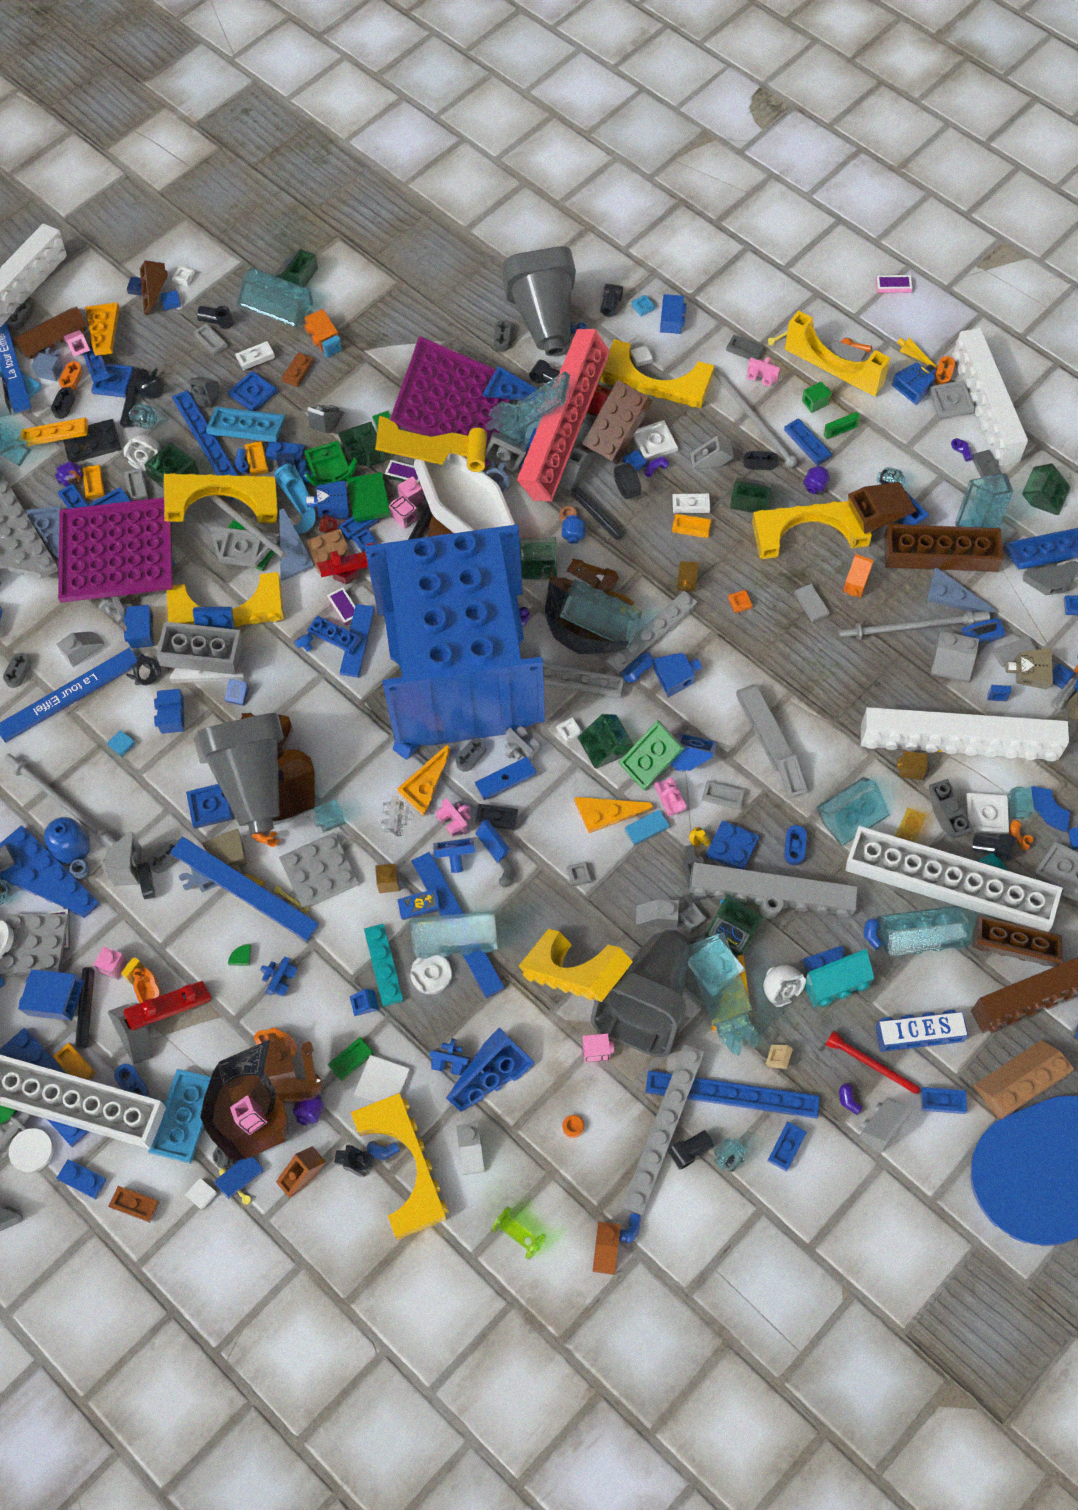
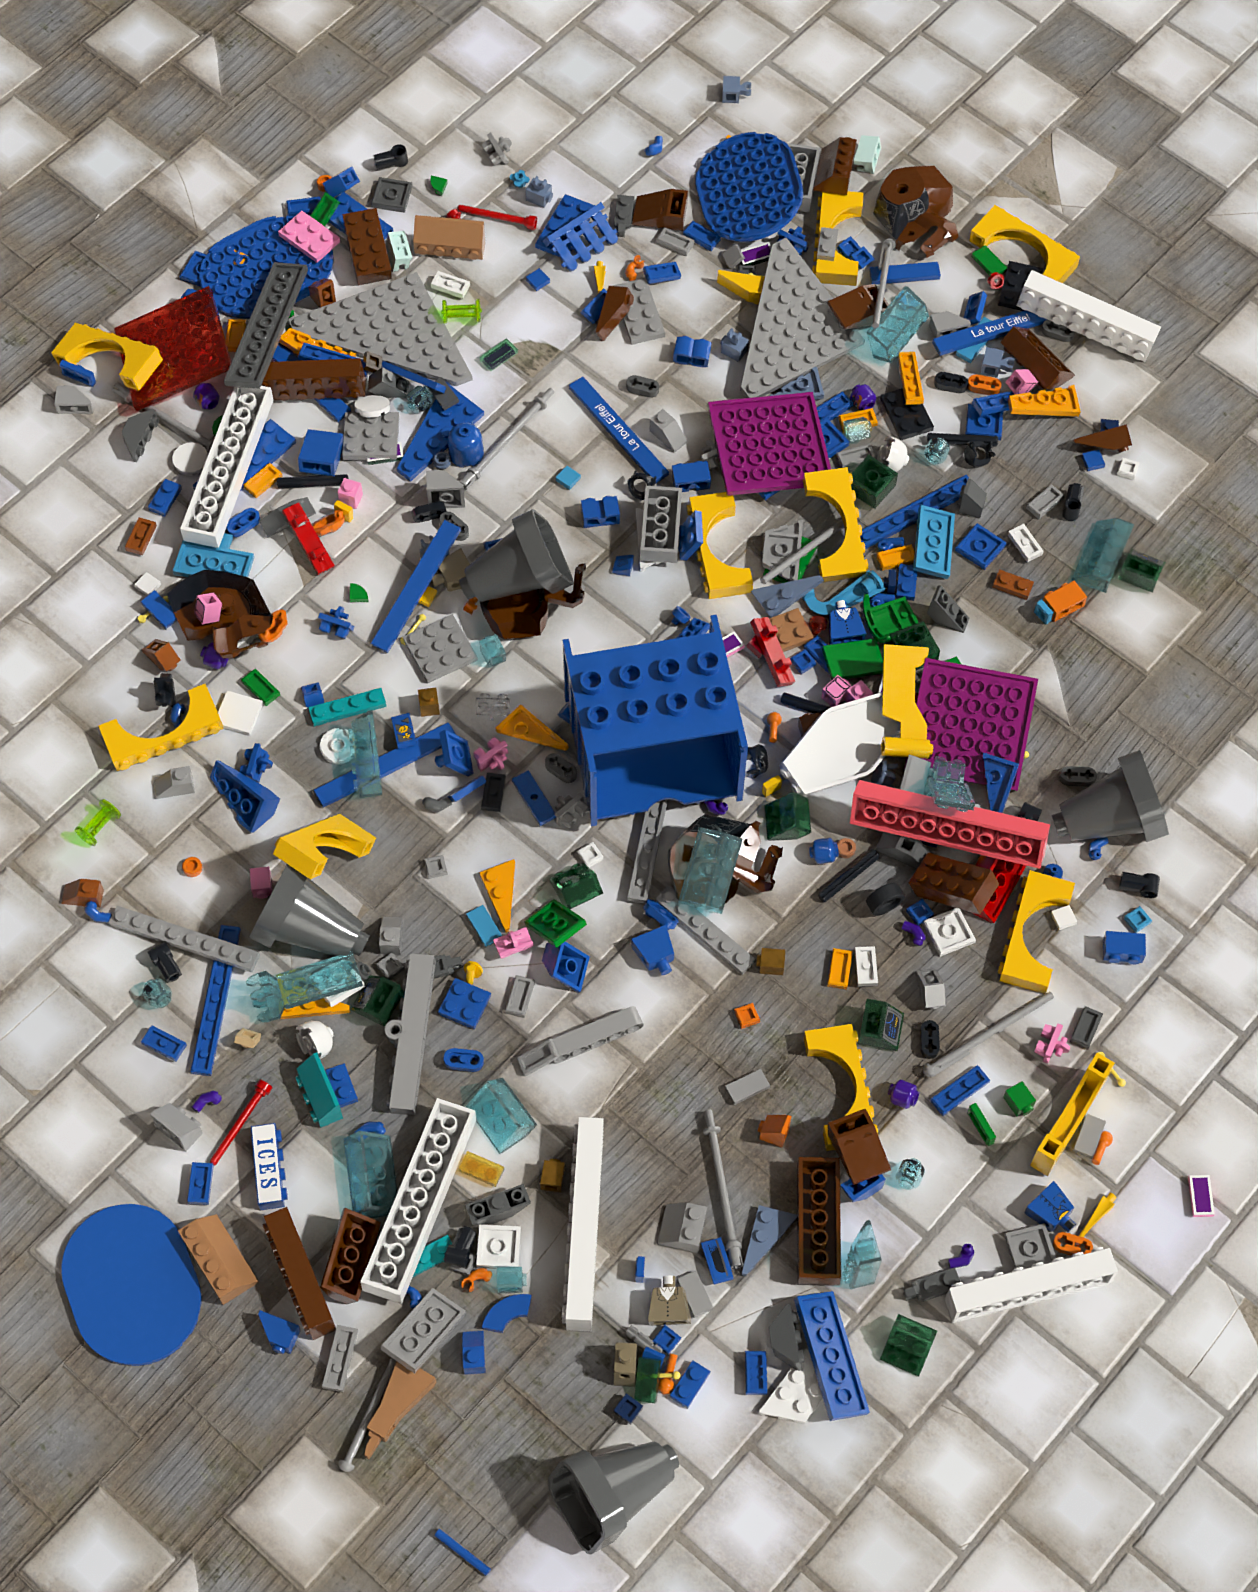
camera: 85 degrees right, 0 degrees up
(107, 478) = (857, 429): none -> clear light blue brick

